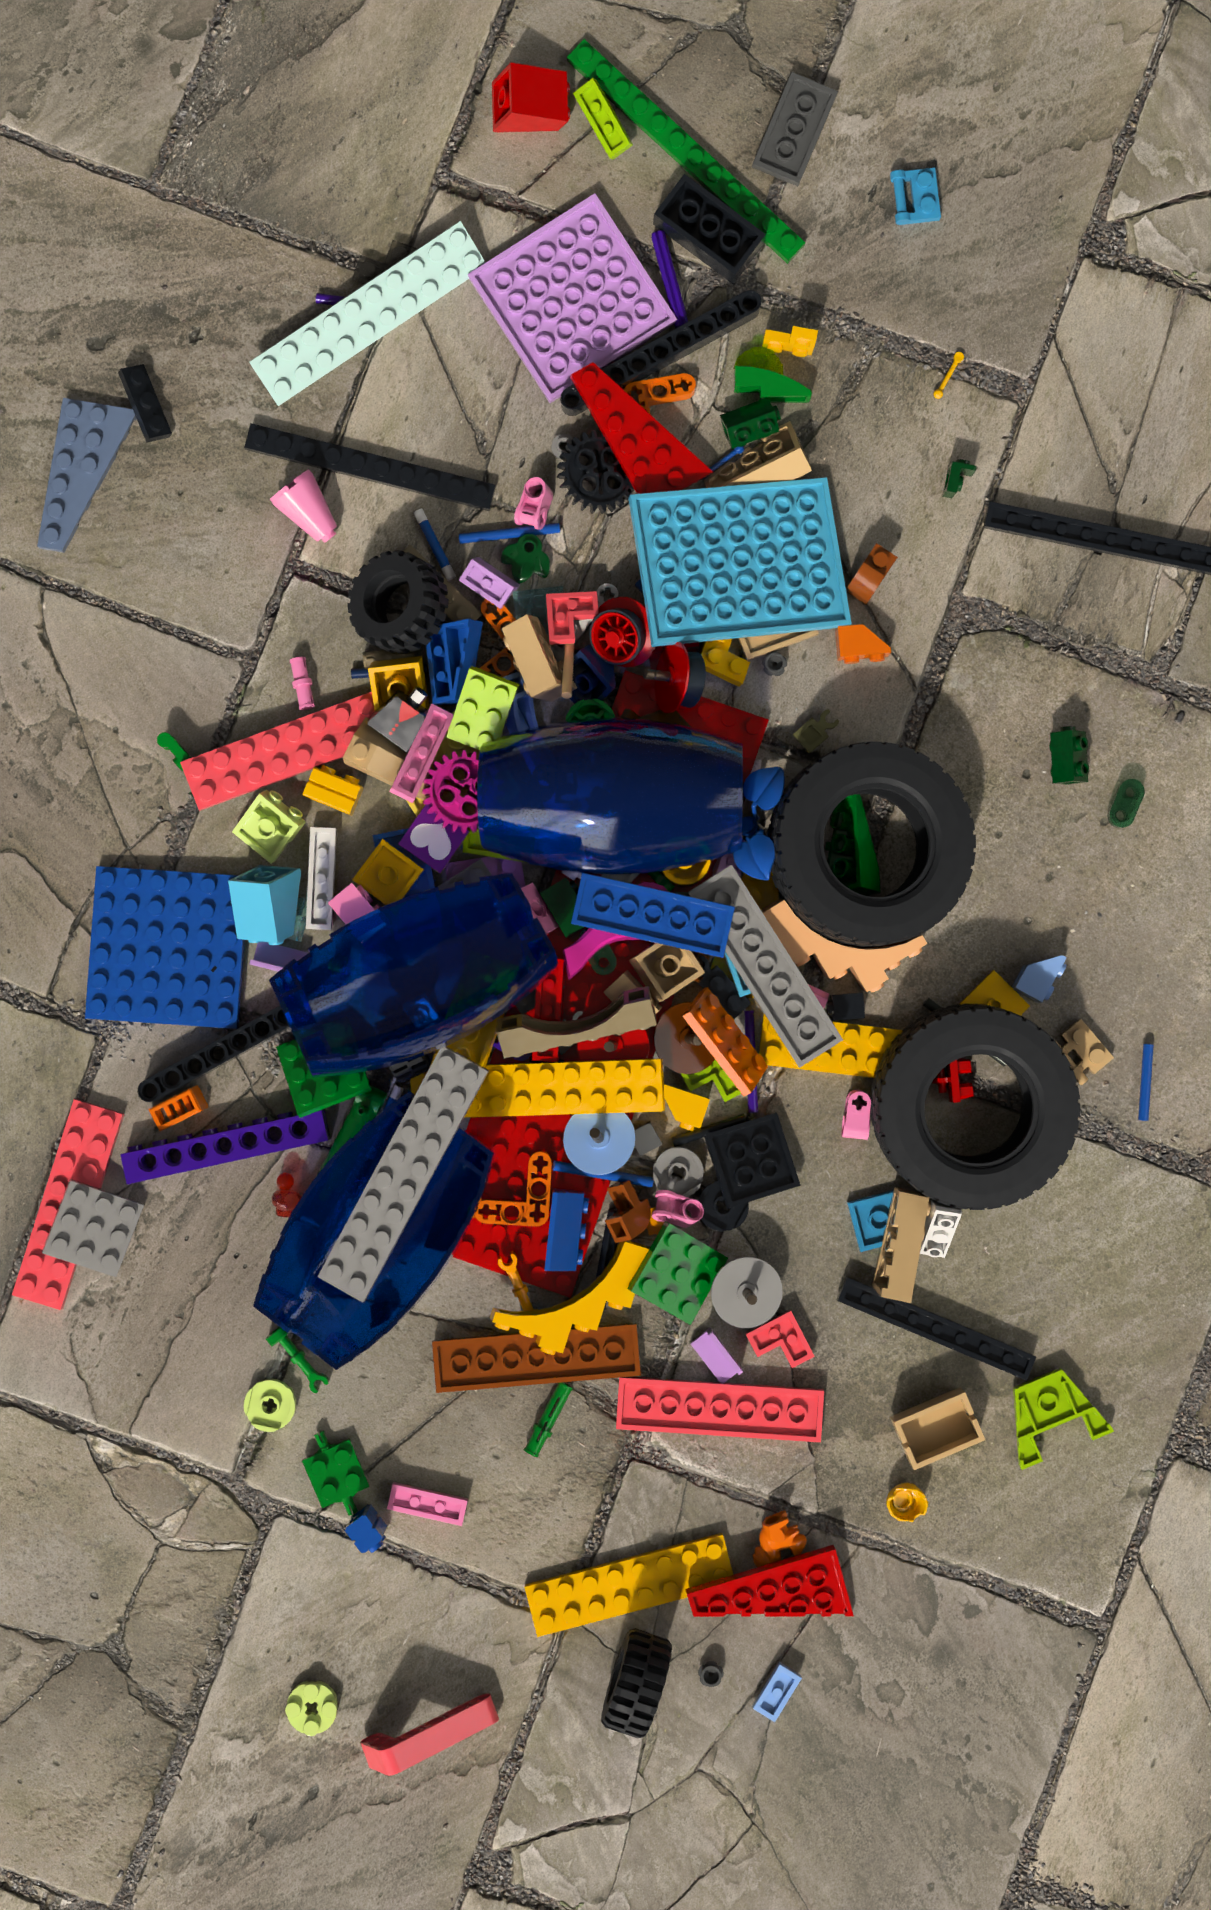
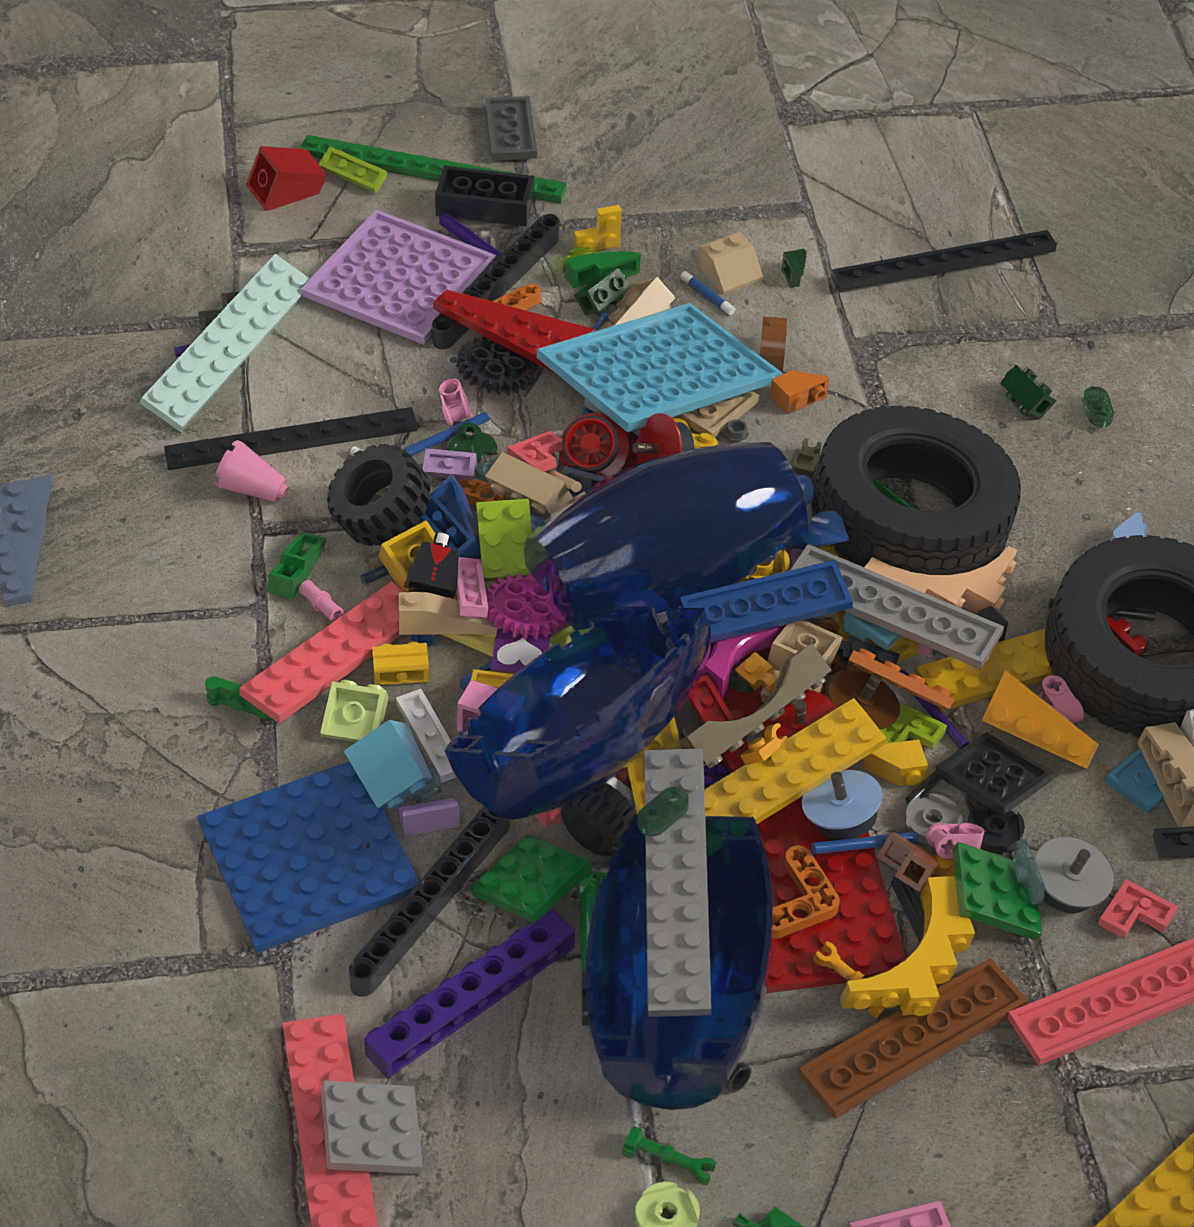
camera: 25 degrees left, 40 degrees down
(145, 403) = (56, 466): black plate -> none
(193, 1101) = (404, 963): orange slope -> none
(285, 1198) = (563, 1008): clear red animal -> none
(301, 629) = (295, 564): none -> green slope
(418, 1118) = (665, 810): none -> clear green plate
(534, 1446) = (969, 1113): green pin -> none
(562, 1062) = (761, 747): none -> light orange plate
(566, 1230) = (862, 896): blue slope -> none
(609, 973) = (757, 672): none -> light orange plate
(646, 1139) = (889, 807): dark grey slope -> none
(706, 1278) = (1028, 872): none -> clear light blue plate
(716, 1356) = (1087, 949): lavender panel -> none
(819, 1135) = (1030, 718): none -> light orange wedge
(855, 466) = (708, 293): none -> blue bar
(898, 443) = (730, 263): none -> tan slope
(923, 194) = (638, 133): dark azure plate -> none
(958, 358) = (738, 207): yellow hinge -> none

